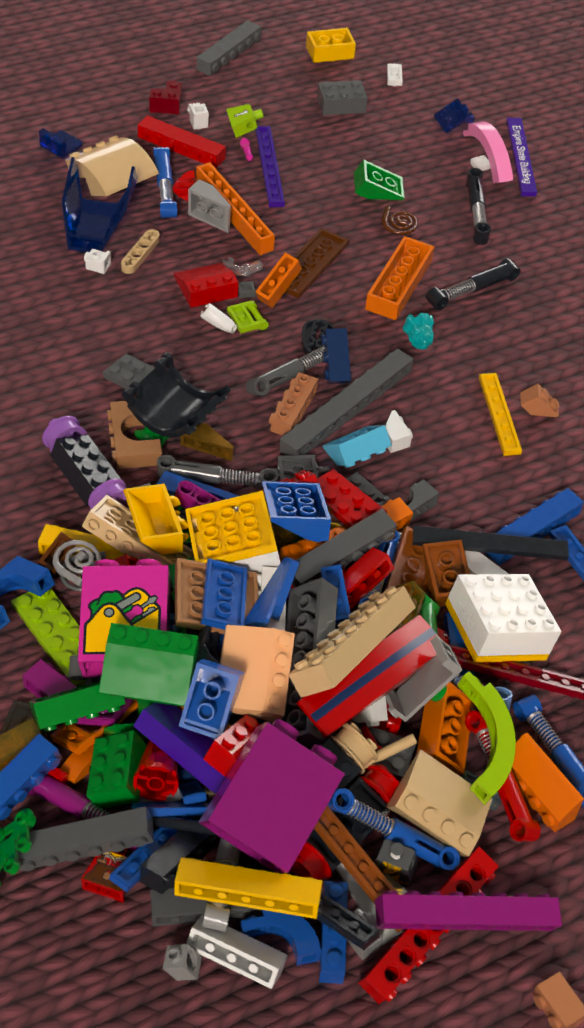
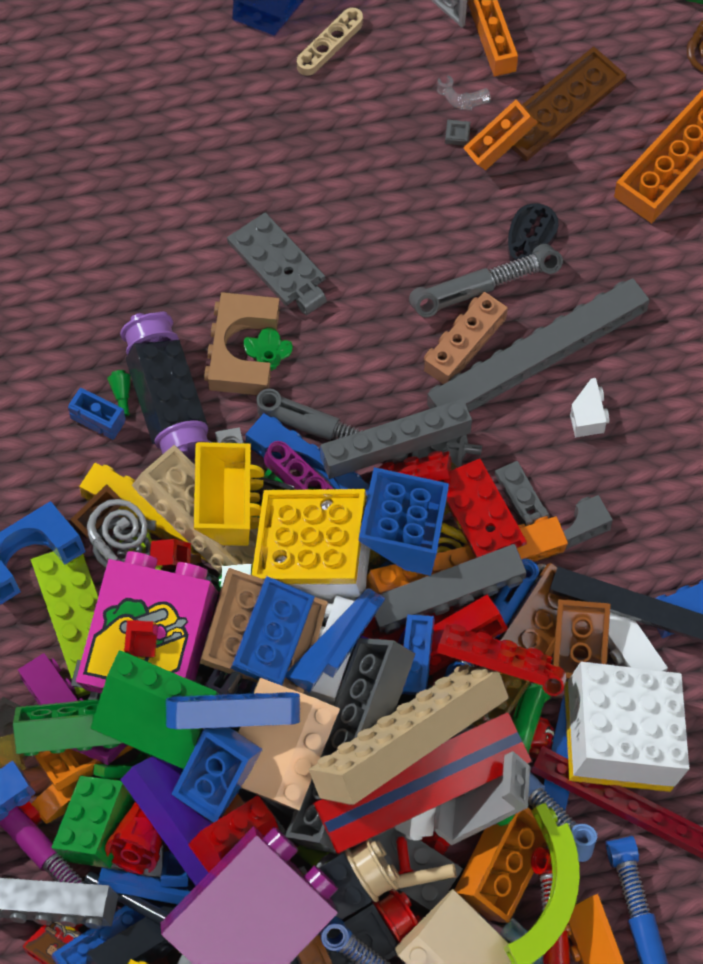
camera: 20 degrees right, 15 degrees up
(37, 493) = (96, 413): none -> blue brick
(49, 474) = (120, 385): none -> green cone
(98, 260) = (266, 49): white brick -> none
(124, 612) = (141, 638): none -> red panel
(169, 402) = (299, 310): black hinge -> none
(207, 284) = (405, 114): red slope -> none
(208, 441) = (327, 367): pearl gold slope -> none
(215, 645) = (232, 710): none -> beam
(218, 319) = (404, 178): white piece -> none
(243, 319) = (437, 181): lime plate -> none
(268, 466) = (395, 438): none -> dark grey brick
(336, 356) = (541, 277): dark blue brick -> none
(358, 445) = (531, 420): medium azure slope -> none
(401, 578) = (502, 657): none -> red hinge
(419, 330) = (674, 252): teal hair -> none

